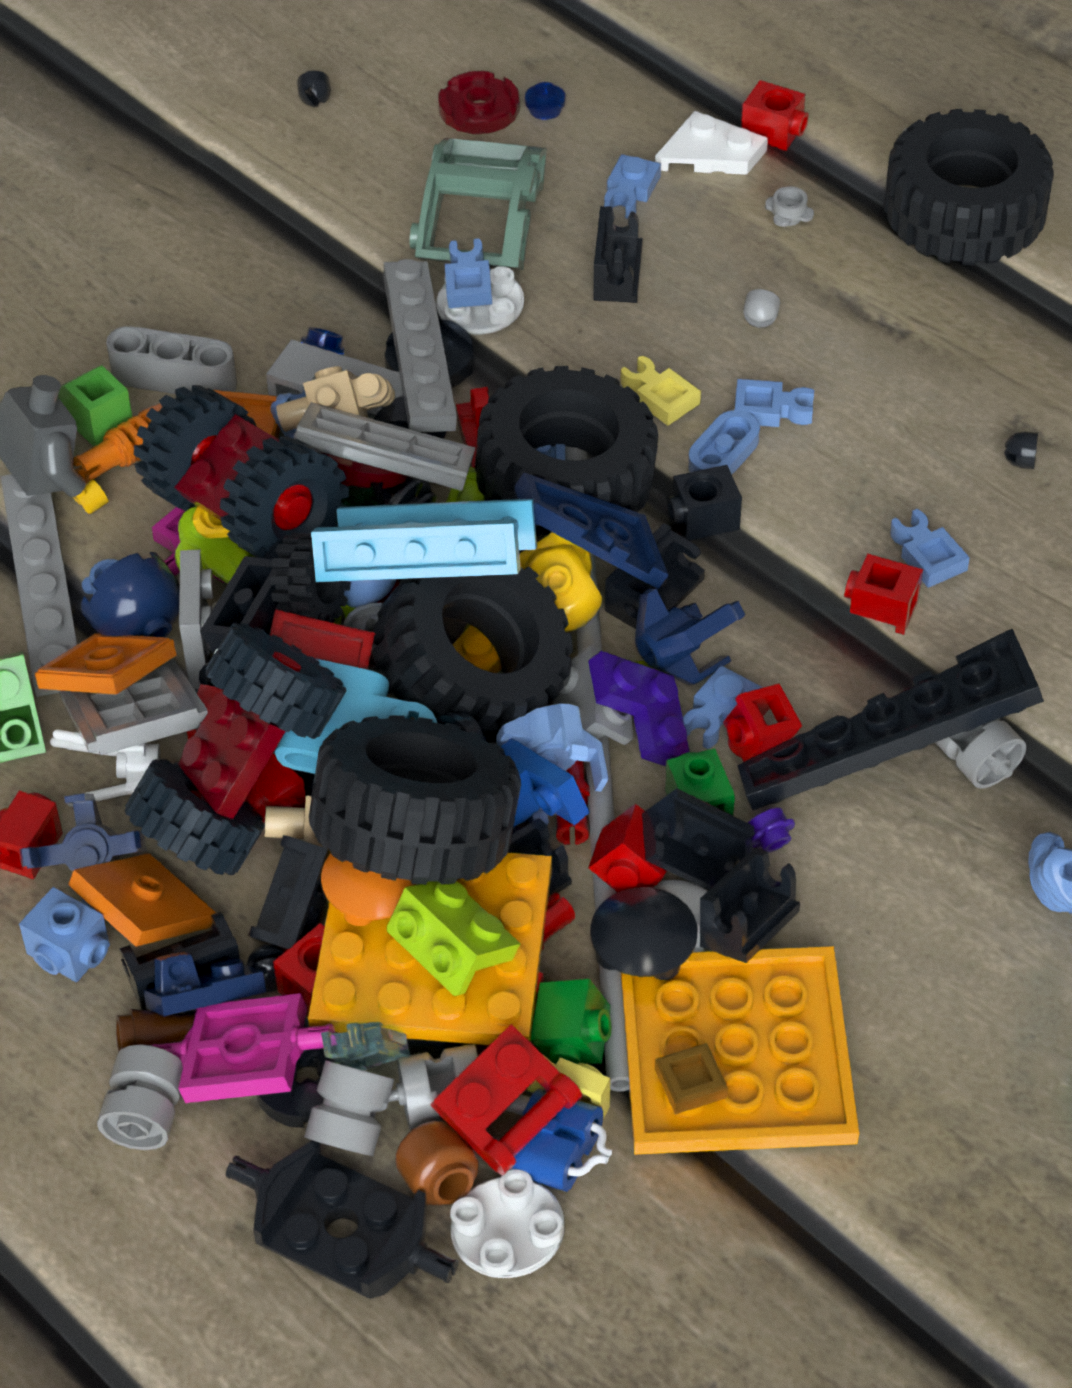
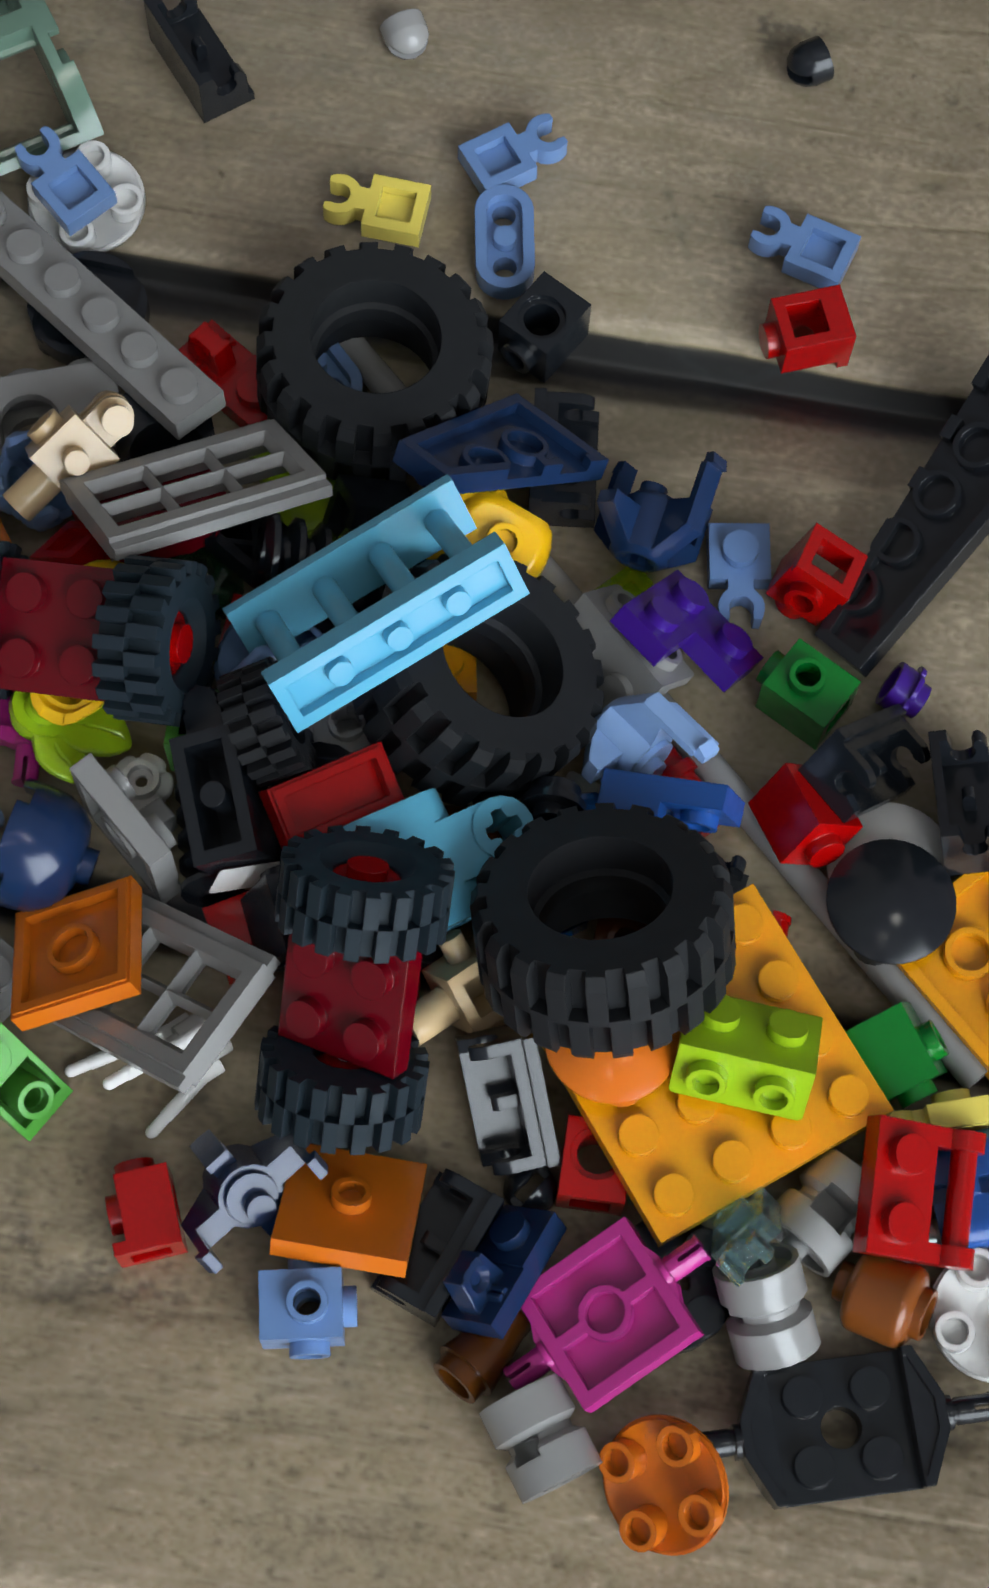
camera: 40 degrees left, 20 degrees up
(193, 1174) = (664, 1485): none -> orange dish

